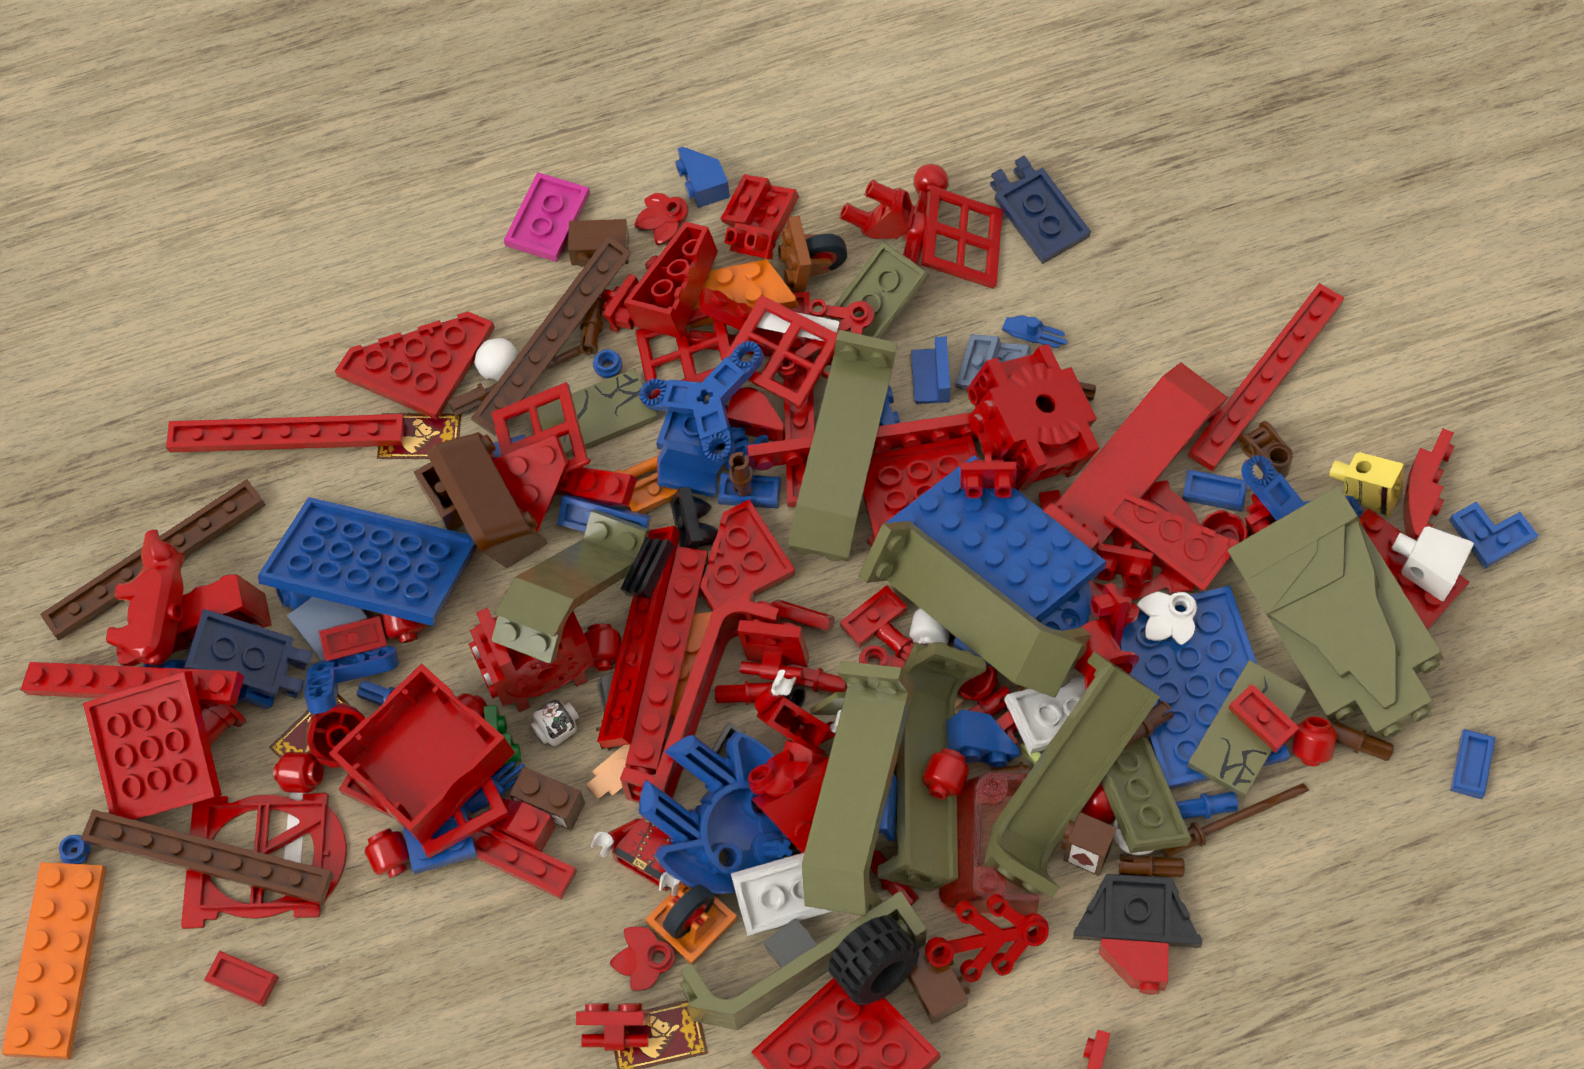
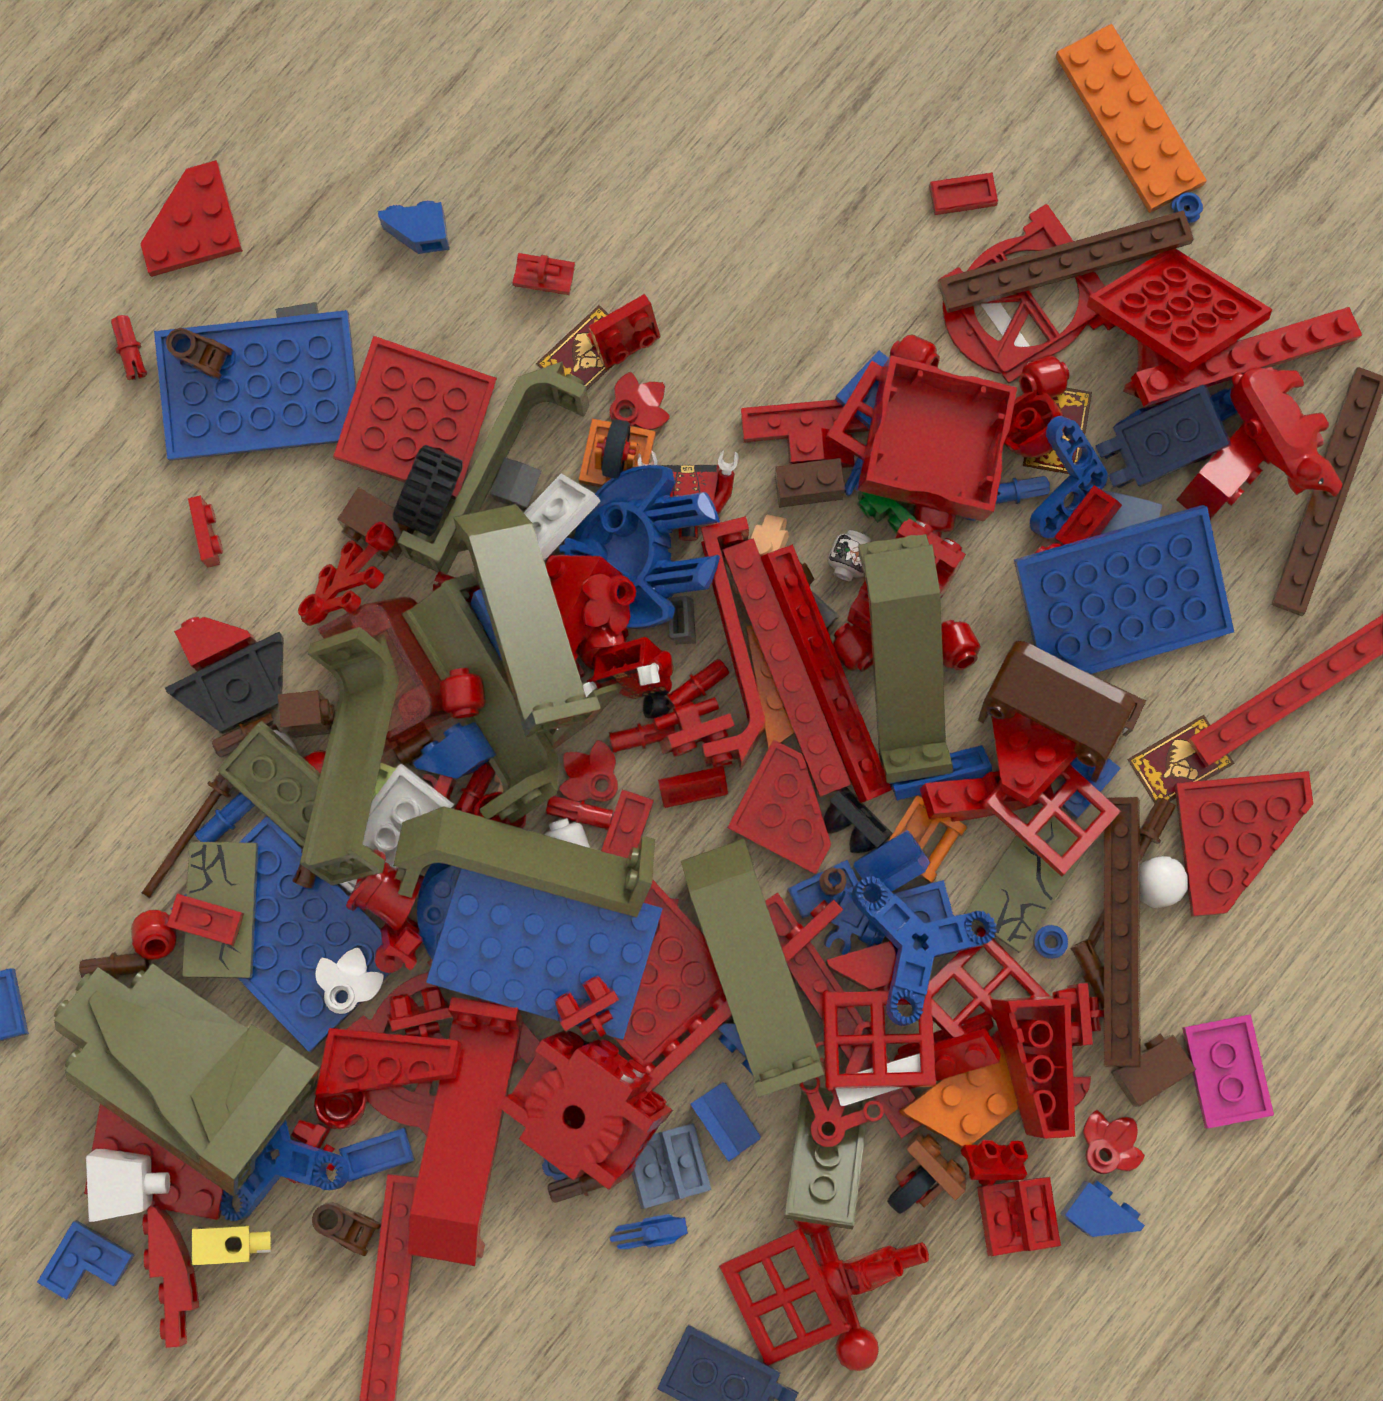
camera: 145 degrees right, 15 degrees up
(647, 567) = (867, 741): black tile -> none

